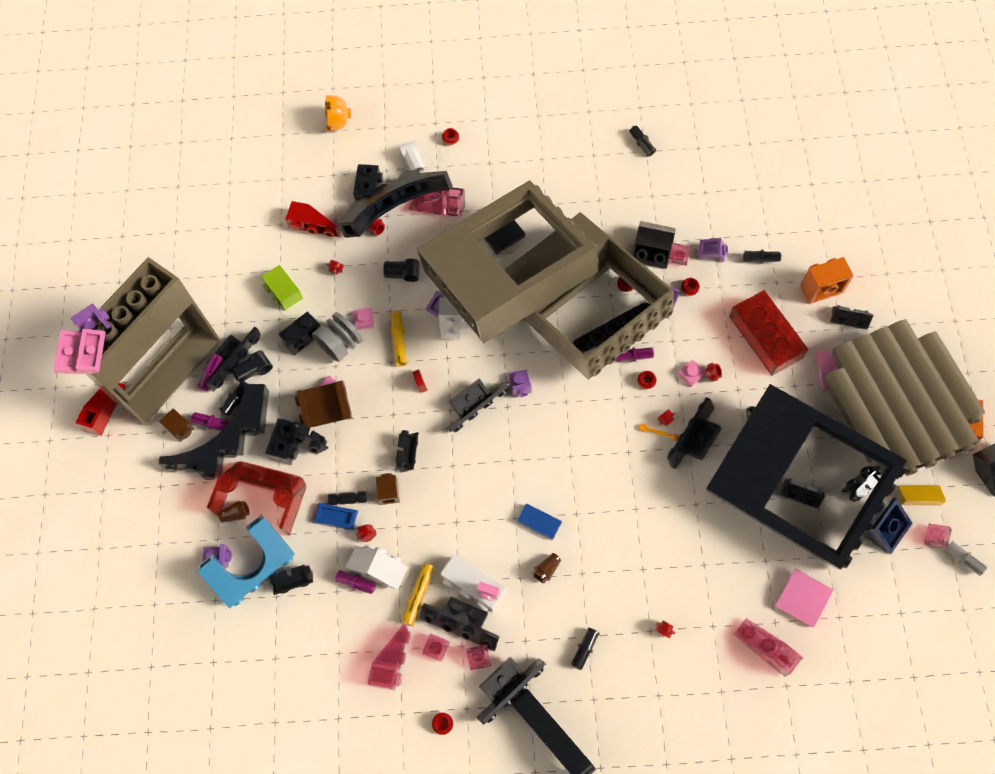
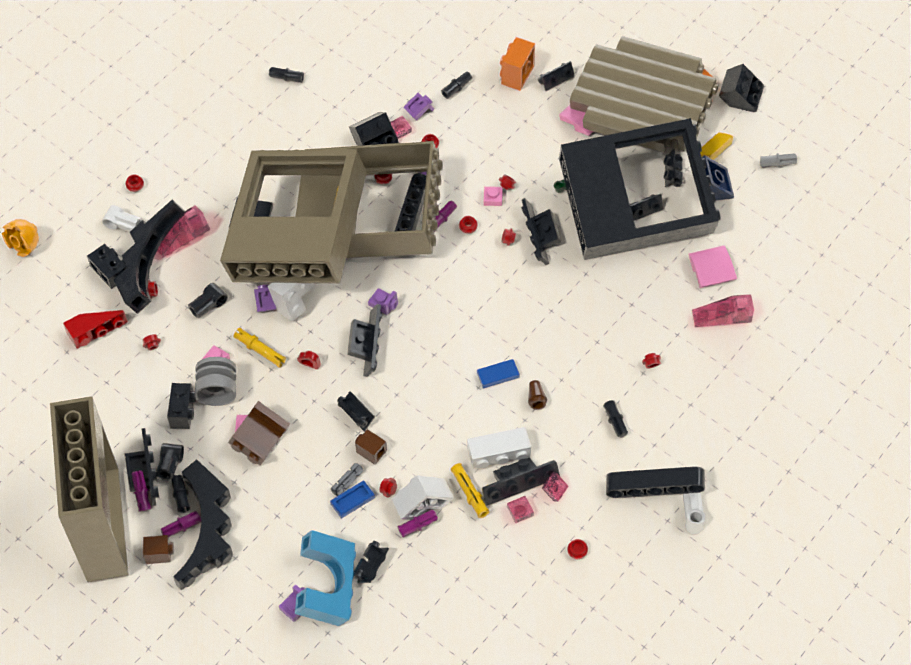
camera: 50 degrees left, 10 degrees down
(79, 352) = (78, 501): bright pink slope -> none
(90, 317) = (61, 470): medium lavender bracket -> none
(97, 412) = (79, 592): red slope -> none
(234, 512) = (275, 561): reddish brown cone -> none
(281, 447) = (257, 485): black brick -> none
(282, 287) = (126, 389): lime brick -> none
(288, 489) = (250, 535): clear red windscreen -> none
(300, 435) = (274, 465): black hinge -> none
(386, 666) = (502, 551): clear pink slope -> none
(488, 591) = (518, 435): bright pink plate -> none
(504, 684) = (590, 486): black bracket -> none
(643, 427) = (499, 257): light orange hinge -> none
(768, 332) = (515, 128): clear red brick -> none
(938, 535) = (749, 161): clear pink plate -> none

